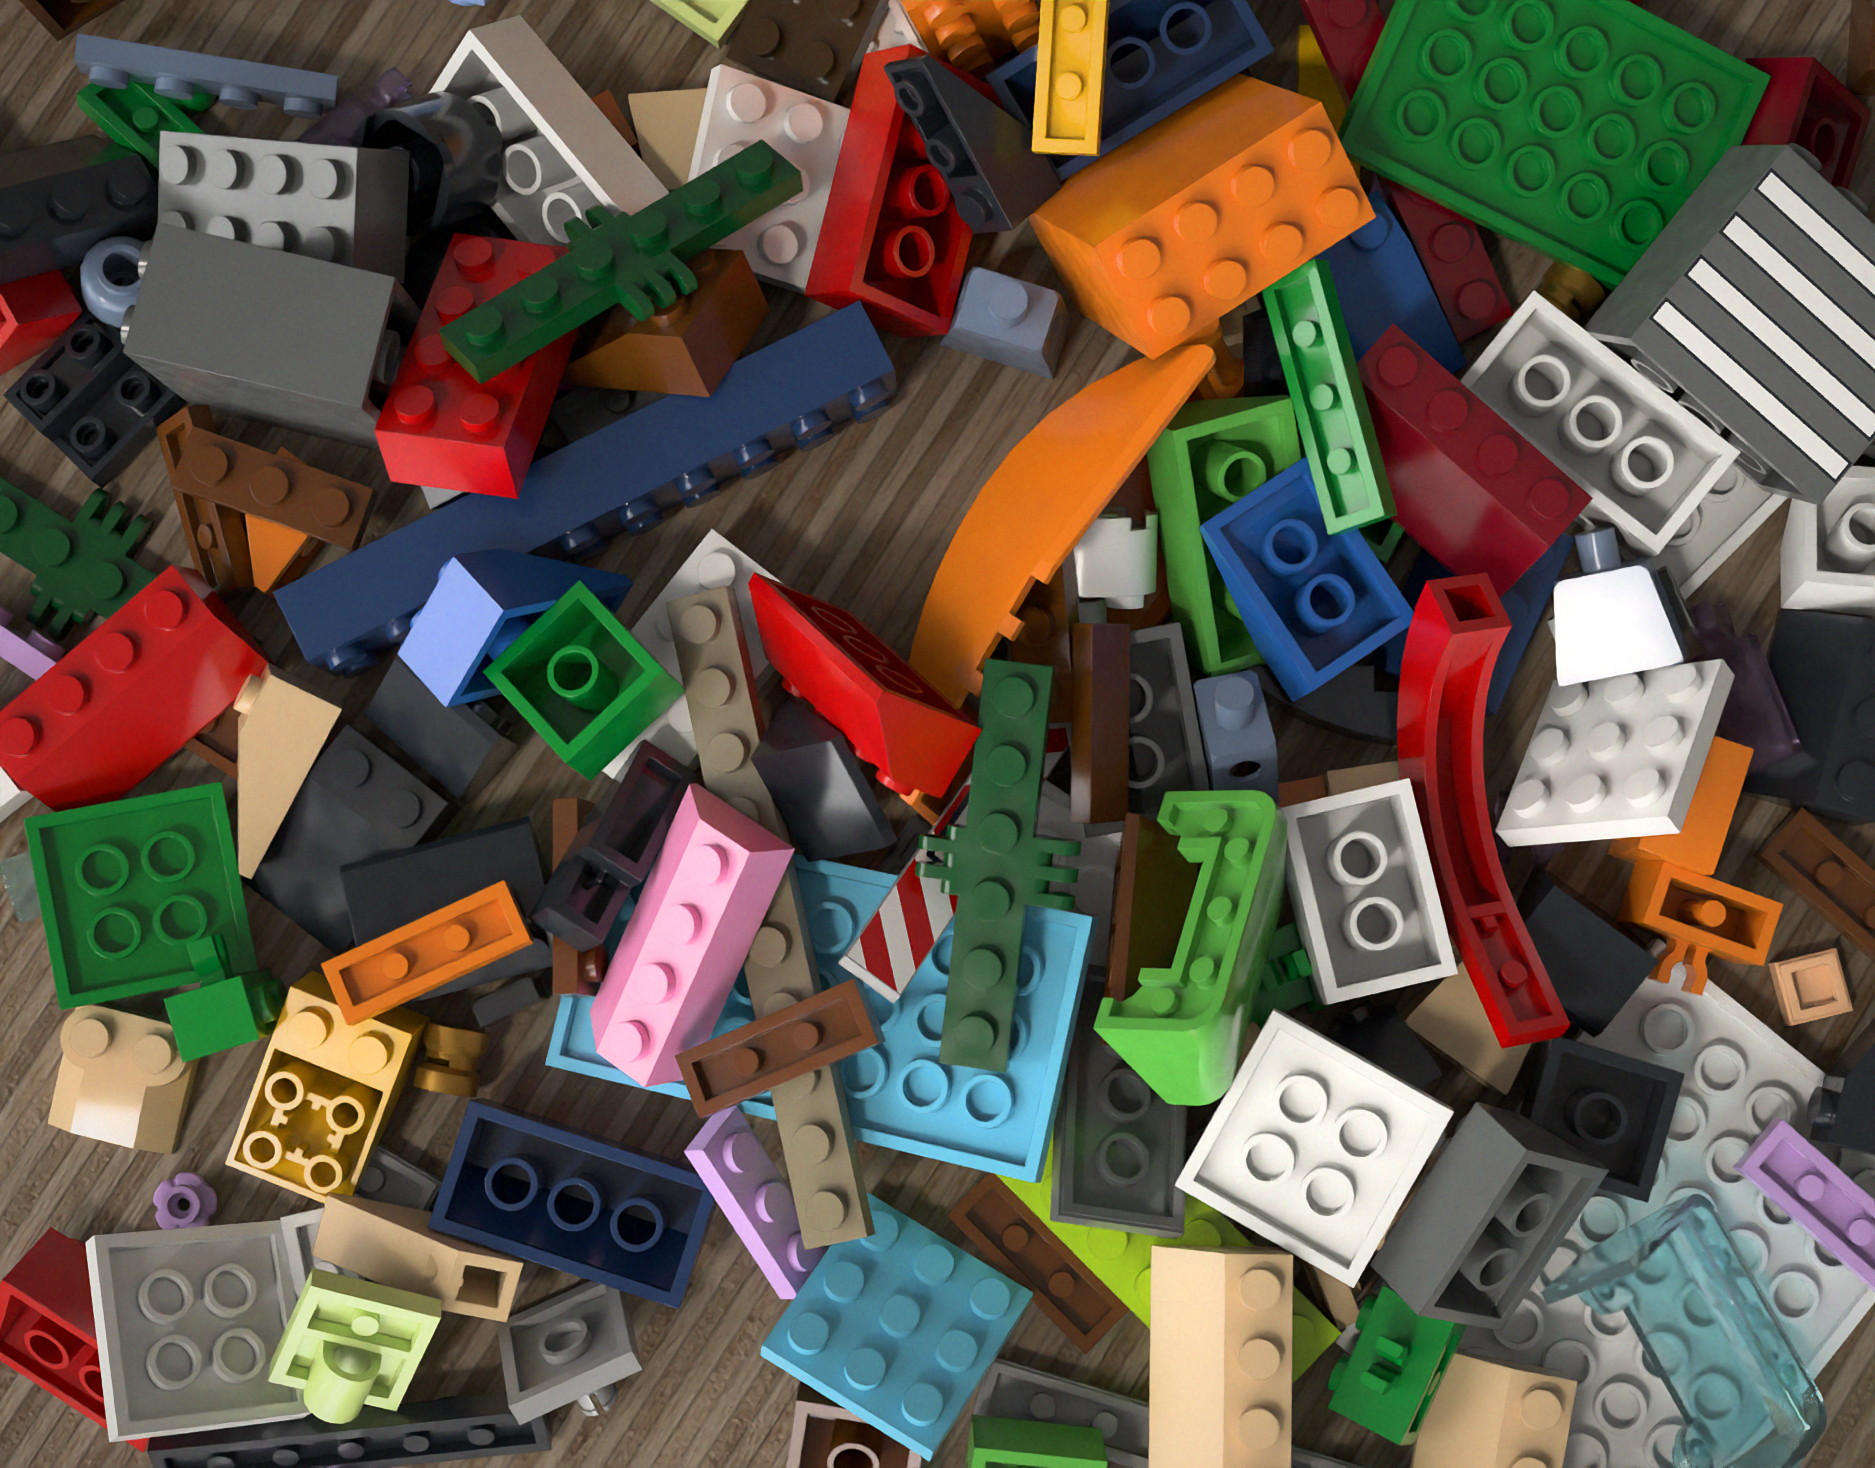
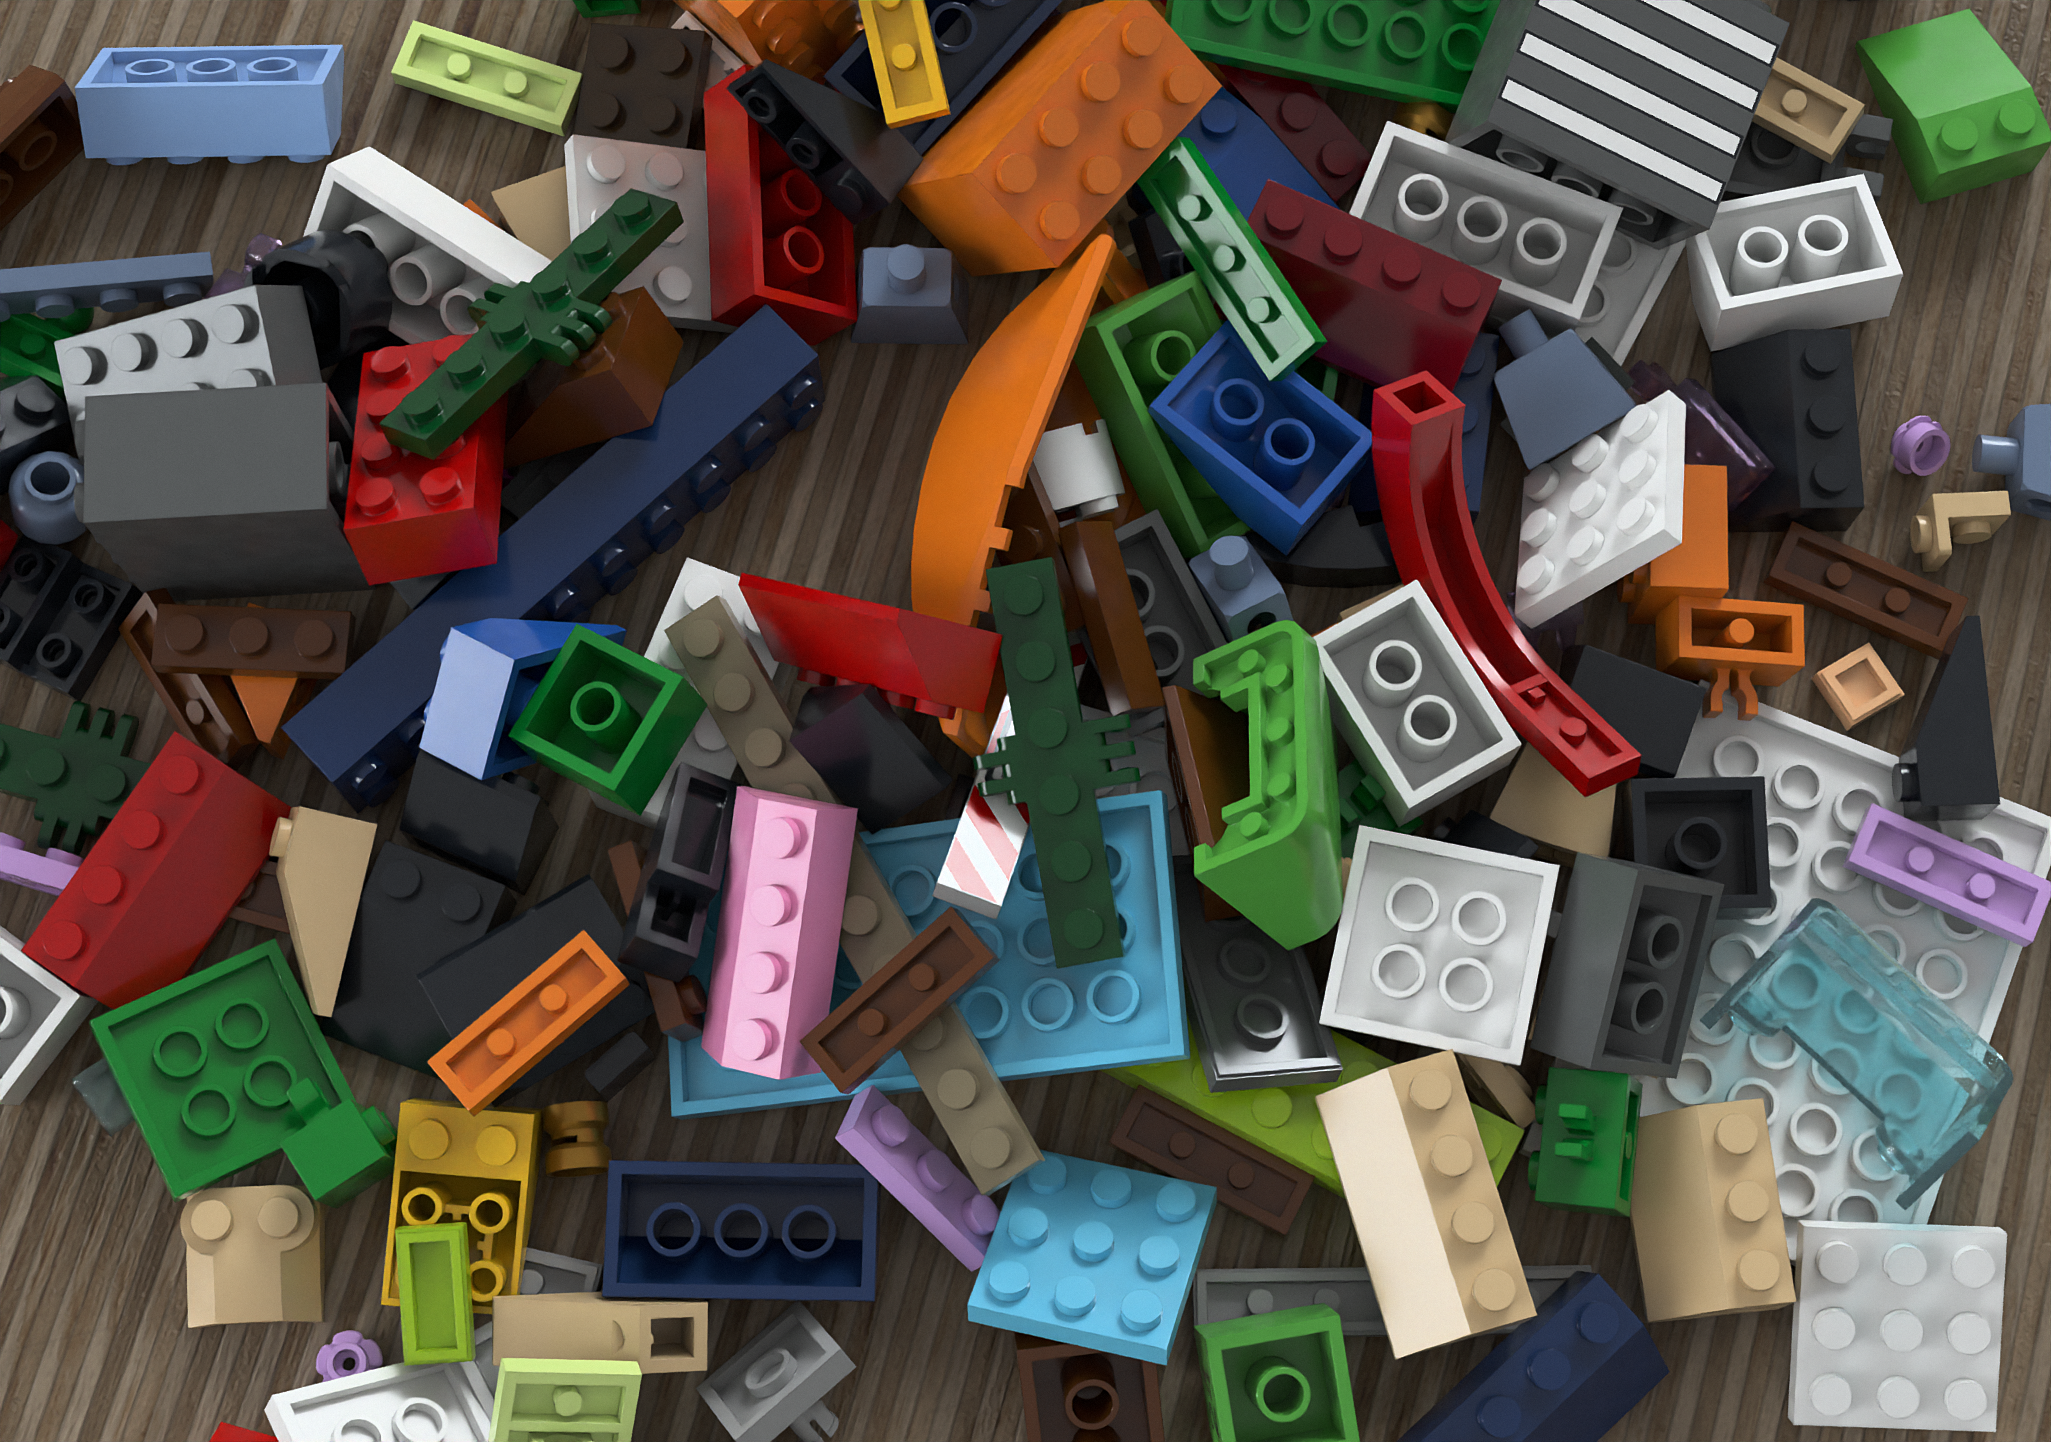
camera: 20 degrees left, 10 degrees down
(275, 1174) = (435, 1293): none -> lime tile

